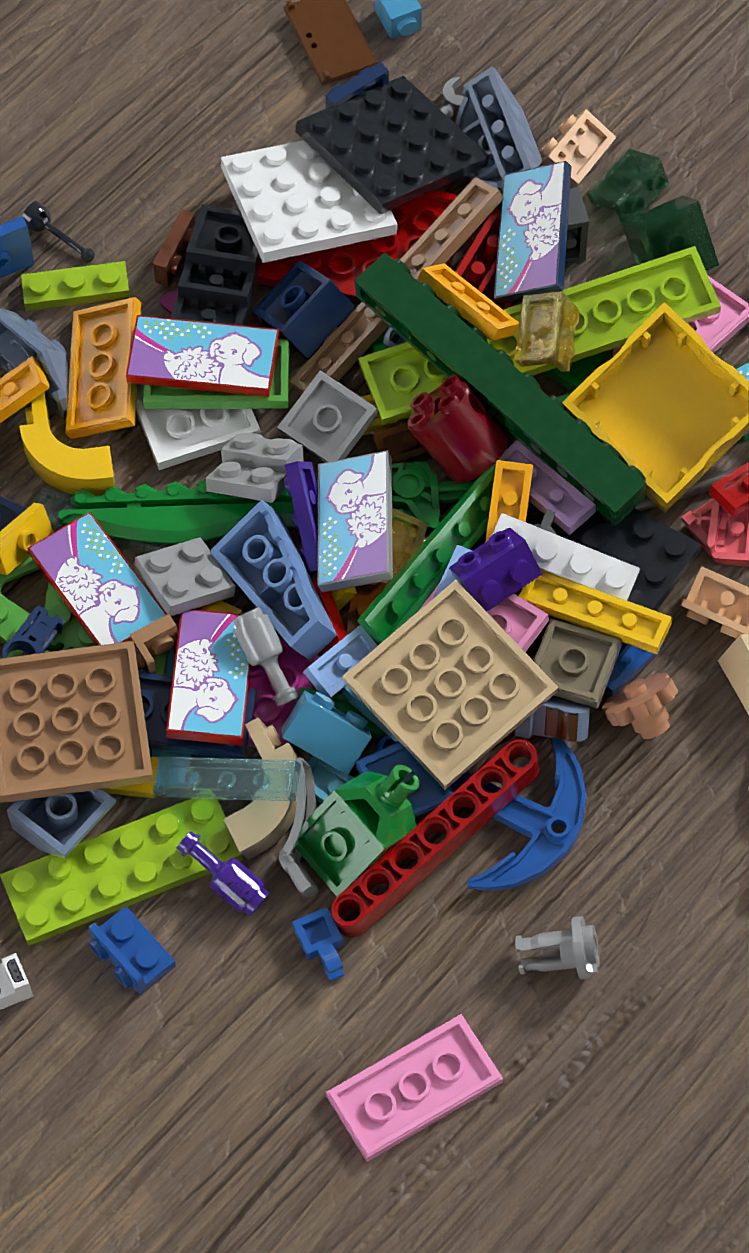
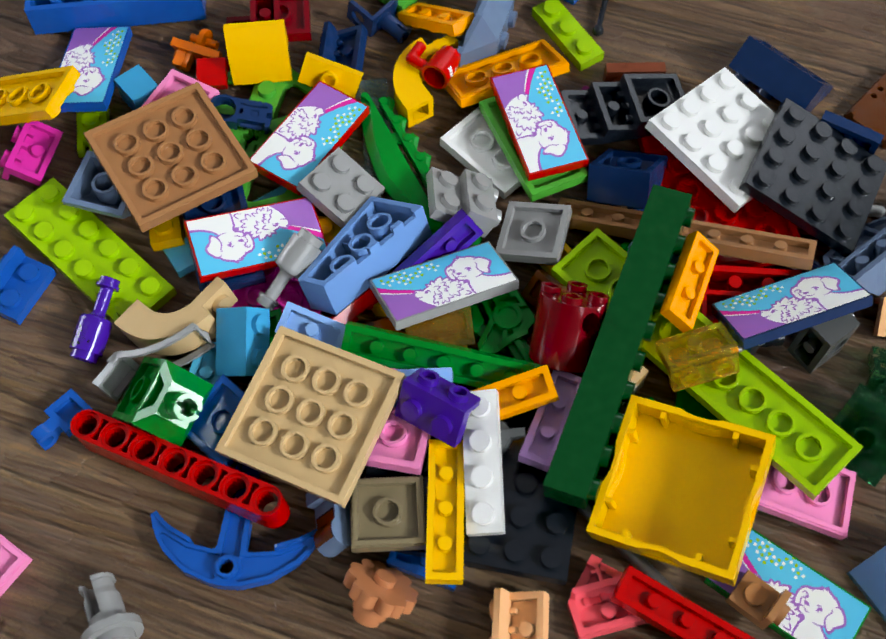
camera: 65 degrees right, 0 degrees up
(71, 421) = (440, 66): none -> red piece
(153, 639) = (269, 185): medium nougat bracket -> none
(227, 778) = (169, 287): clear light blue tile -> none
(247, 115) = (778, 74): none -> dark blue slope

